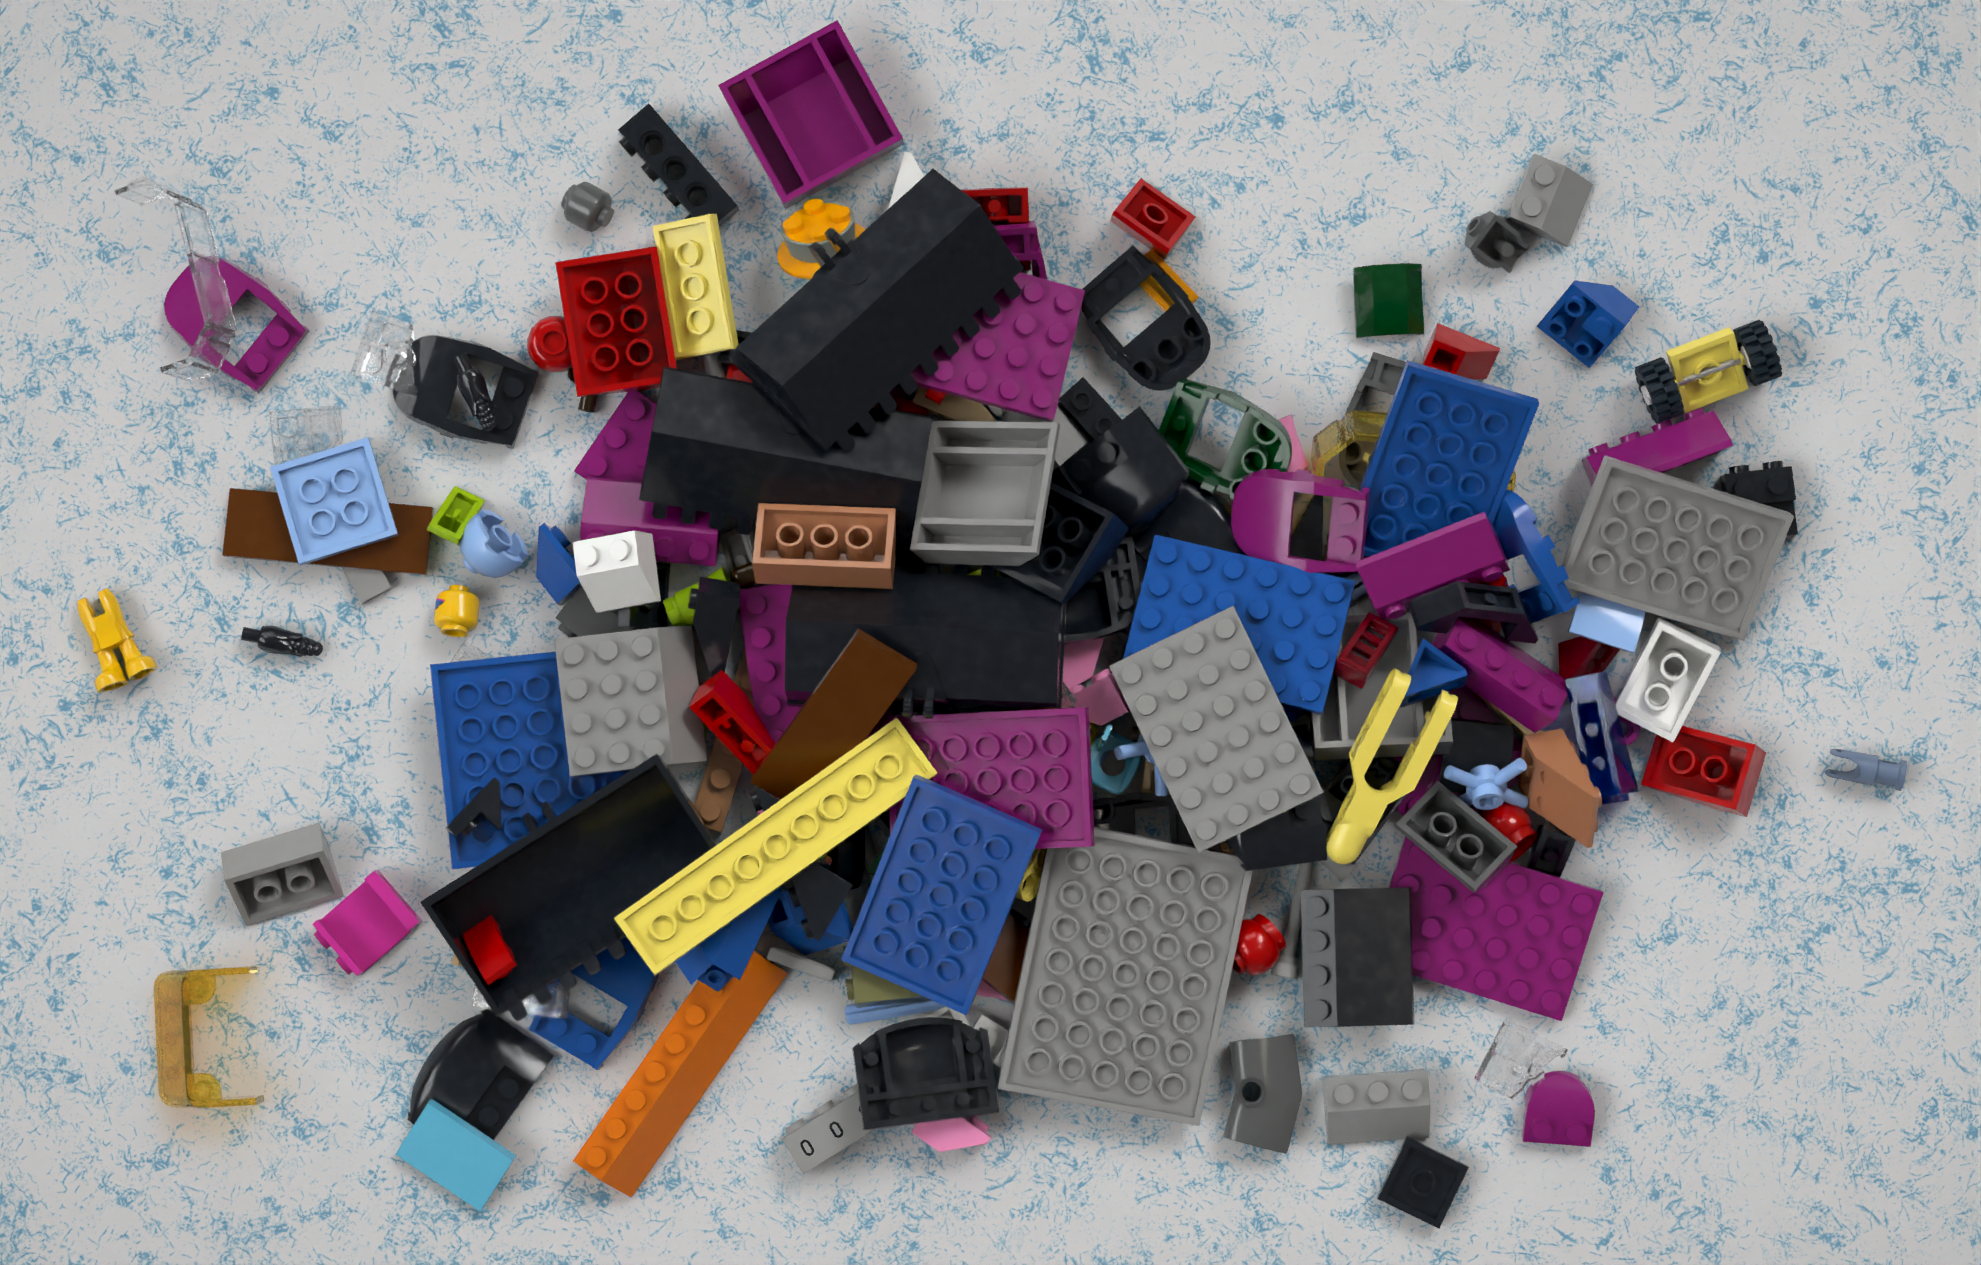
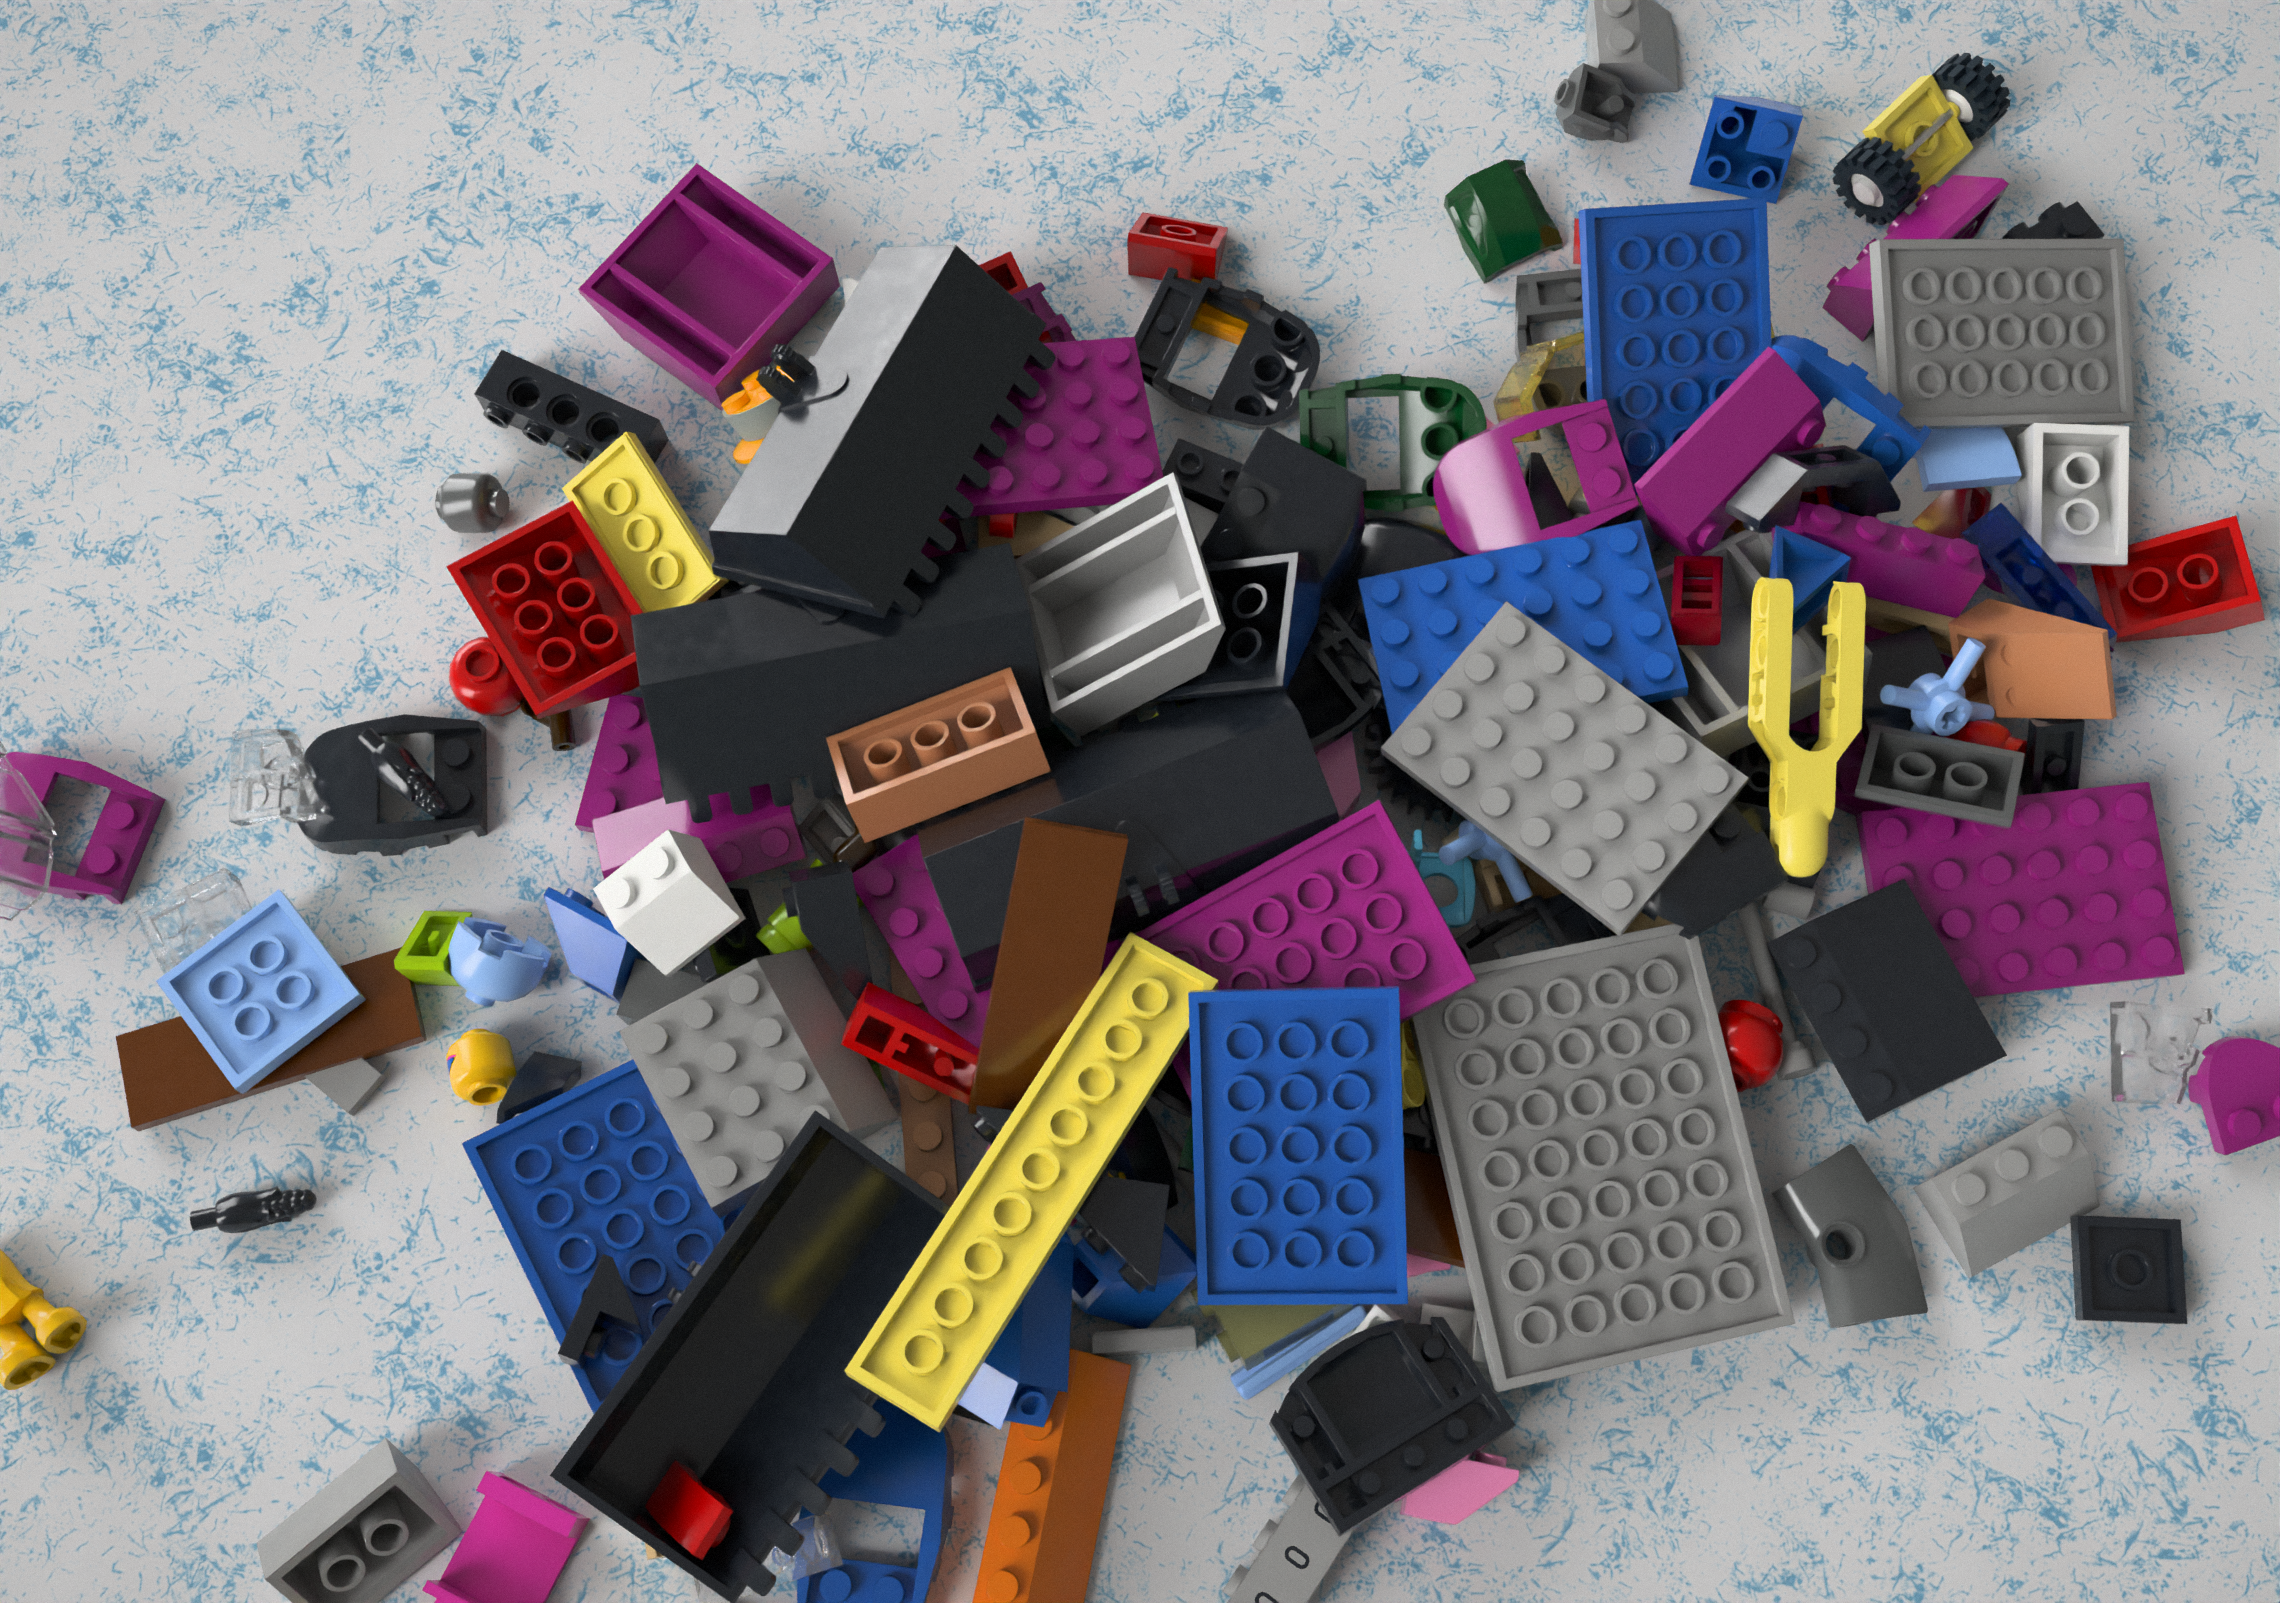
camera: 15 degrees left, 15 degrees down
(489, 640) = (538, 1081): none -> black slope
(1101, 697) = (1402, 797): bright pink slope -> none

